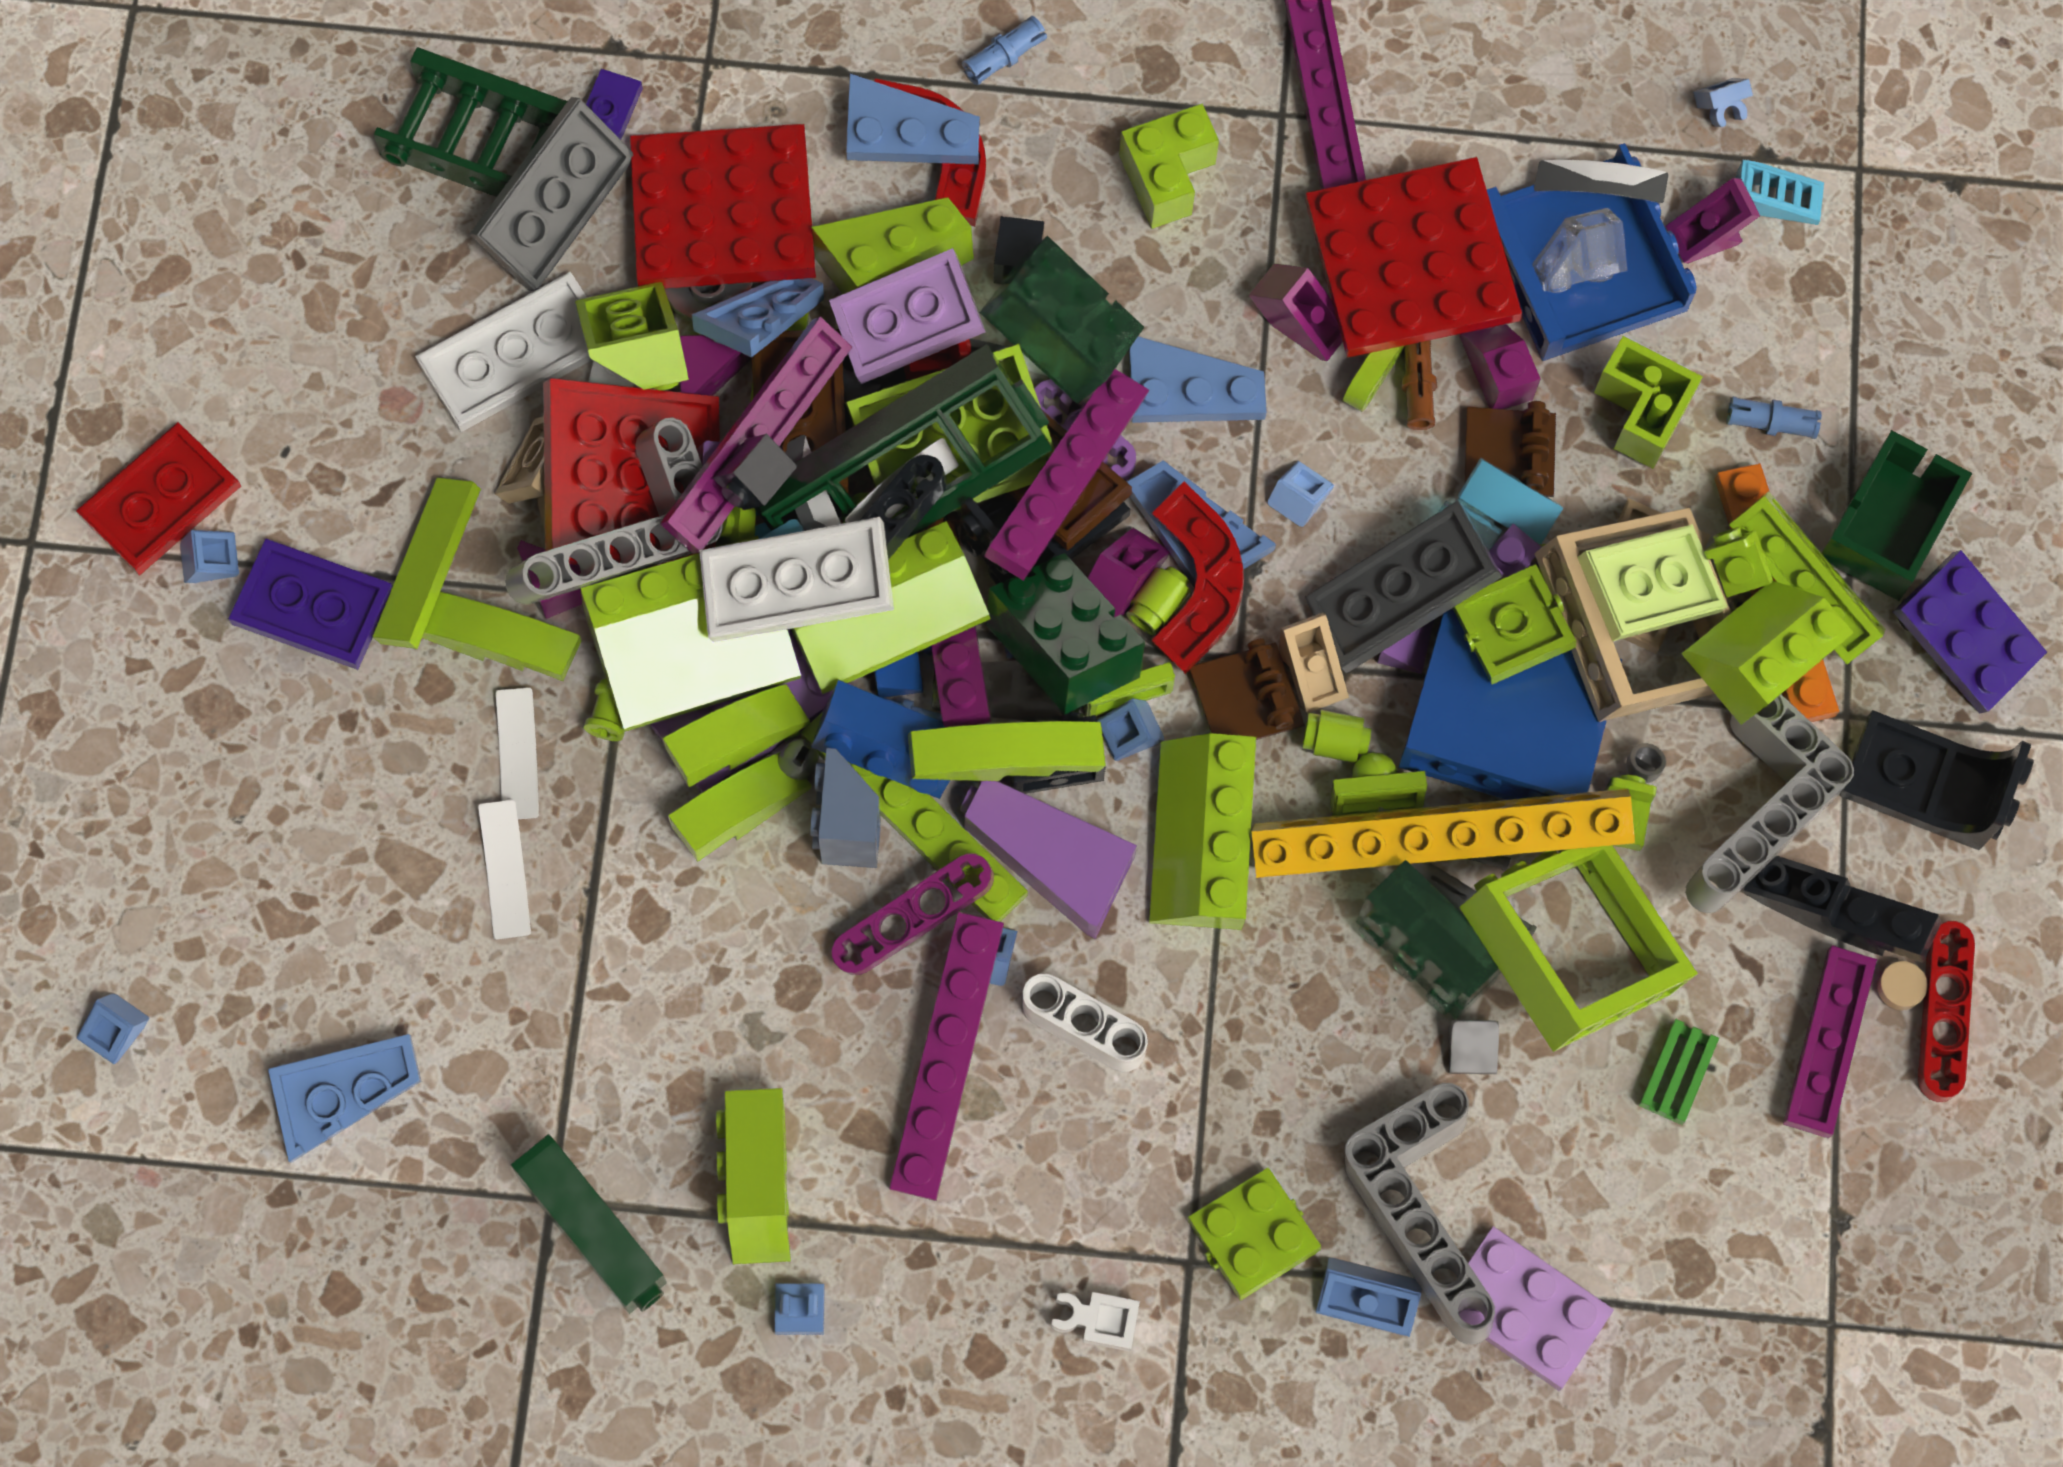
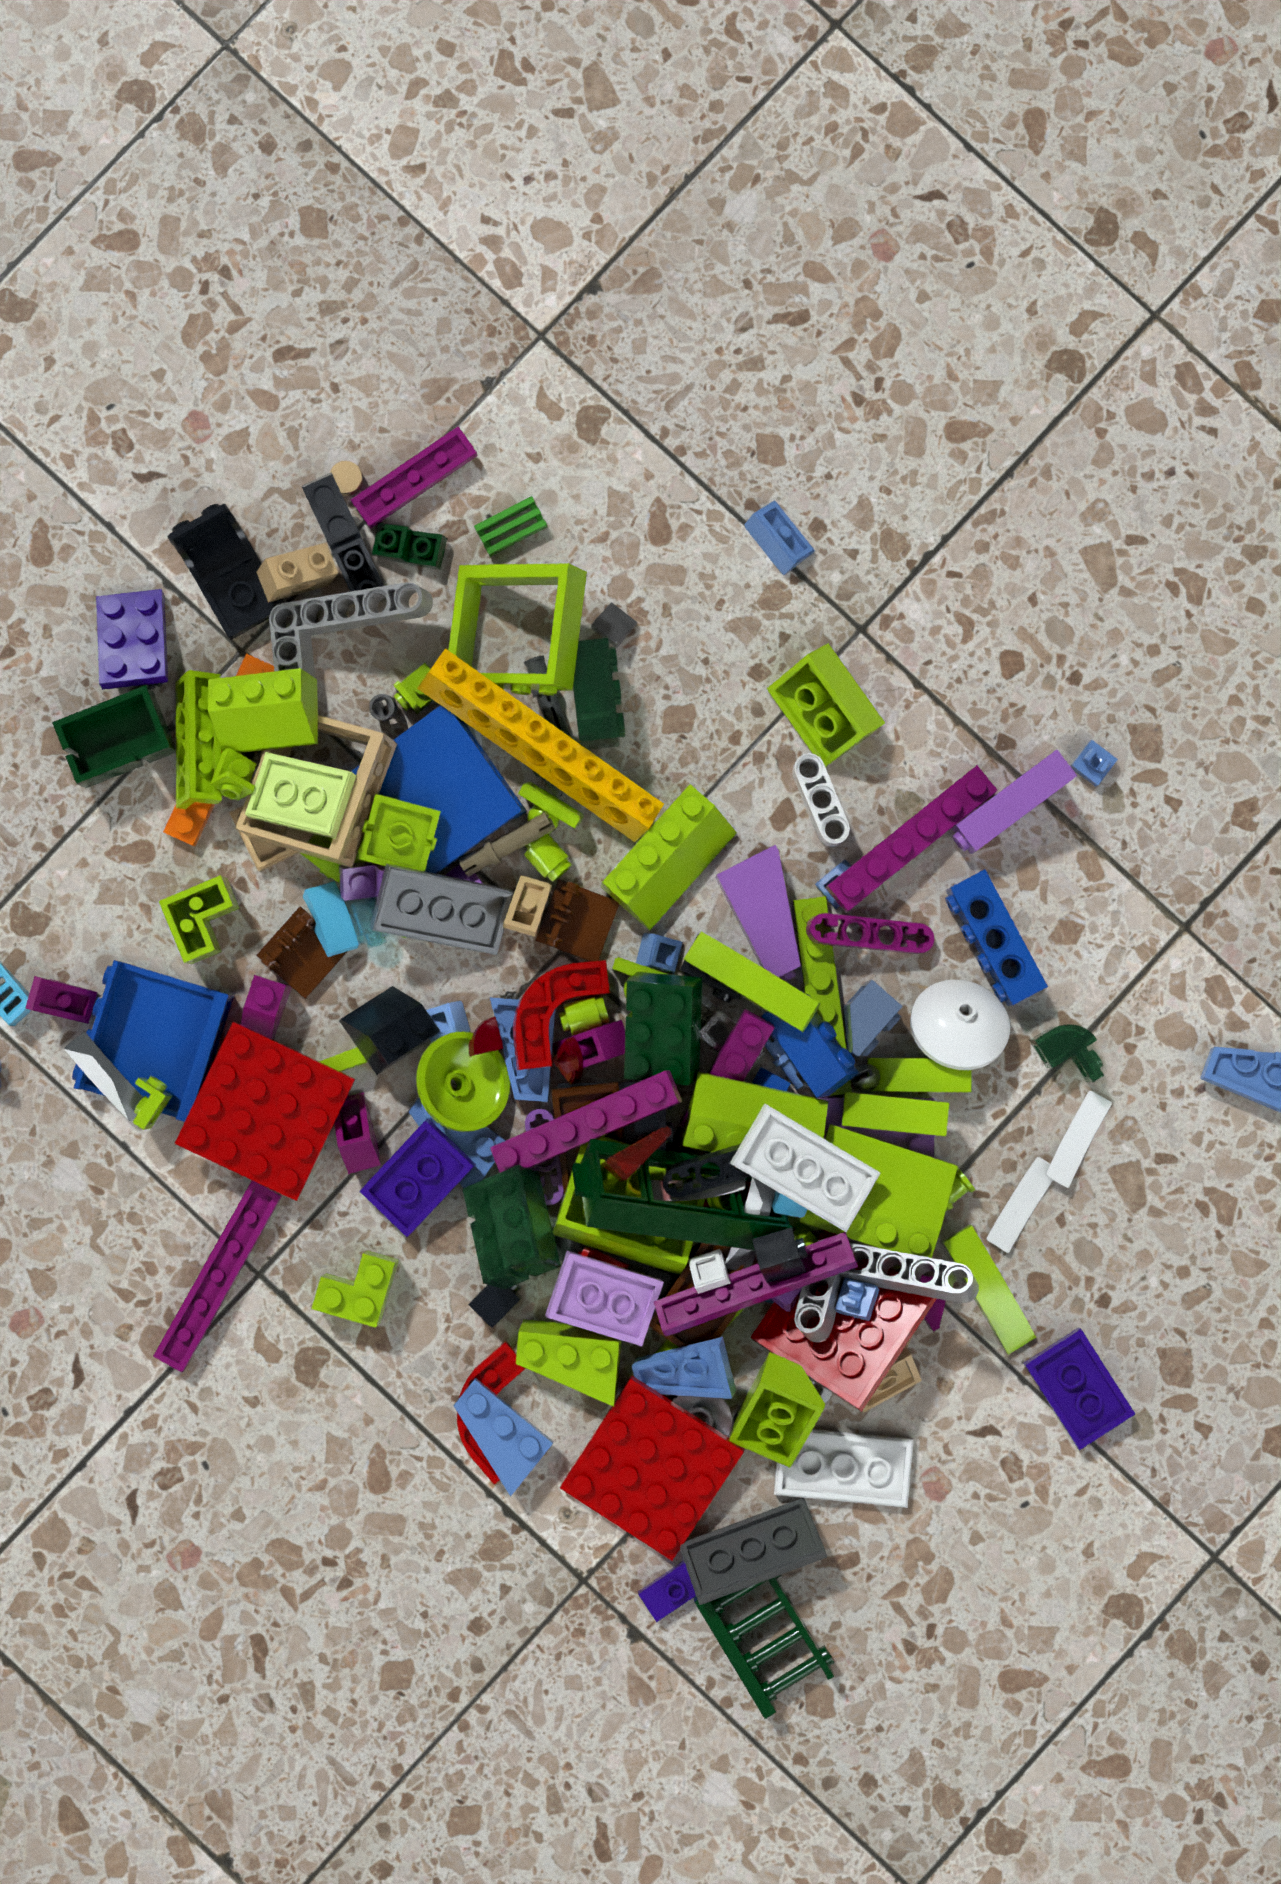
camera: 145 degrees left, 15 degrees up
(158, 498) = (1121, 1528): red tile -> none
(208, 556) = (1116, 1467): medium blue slope -> none
(426, 563) = (994, 1363): lime tile -> none
(589, 1225) = (1180, 890): dark green slope -> none
(598, 960) = (1068, 1041): none -> clear green brick
(632, 500) = (857, 1299): none -> medium blue tile
(709, 364) = (746, 1365): magenta slope -> none
(711, 867) = (959, 1039): none -> white dish
(754, 1175) = (1068, 853): lime wedge -> none
(817, 414) = (709, 1271): none -> white tile
(823, 1058) = (1028, 977): none -> blue brick
(861, 1181) = (1013, 802): none -> medium lavender slope
(995, 448) = (628, 1160): none -> clear red slope
(1004, 50) = (397, 1446): medium blue pin -> none
(1106, 1322) = (934, 629): white plate -> none
(1136, 537) = (567, 1060): none -> dark red tile
(1161, 1136) = (825, 704): none -> lime slope
(1199, 311) = (417, 1177): none -> dark purple plate
(1203, 439) = (480, 1082): none -> lime dish
(1245, 496) = (485, 1038): none -> dark red tile
(1254, 1234) = (816, 615): lime plate -> none
(1356, 432) = (389, 1028): none -> black slope
(1397, 696) = (506, 844): none -> dark tan pin
(1414, 1210) = (724, 558): light grey beam -> none
(1419, 408) = (333, 1015): dark orange pin -> none
(1531, 186) = (150, 1108): none -> lime bracket
(1539, 1312) = (700, 466): lavender plate -> none
(1582, 250) = (159, 1039): clear slope -> none
(1769, 963) = (409, 546): none -> dark green slope
(1774, 417) = (129, 854): medium blue pin -> none
(1862, 830) = (297, 572): none -> tan brick
(1954, 1012) = (329, 441): red beam -> none

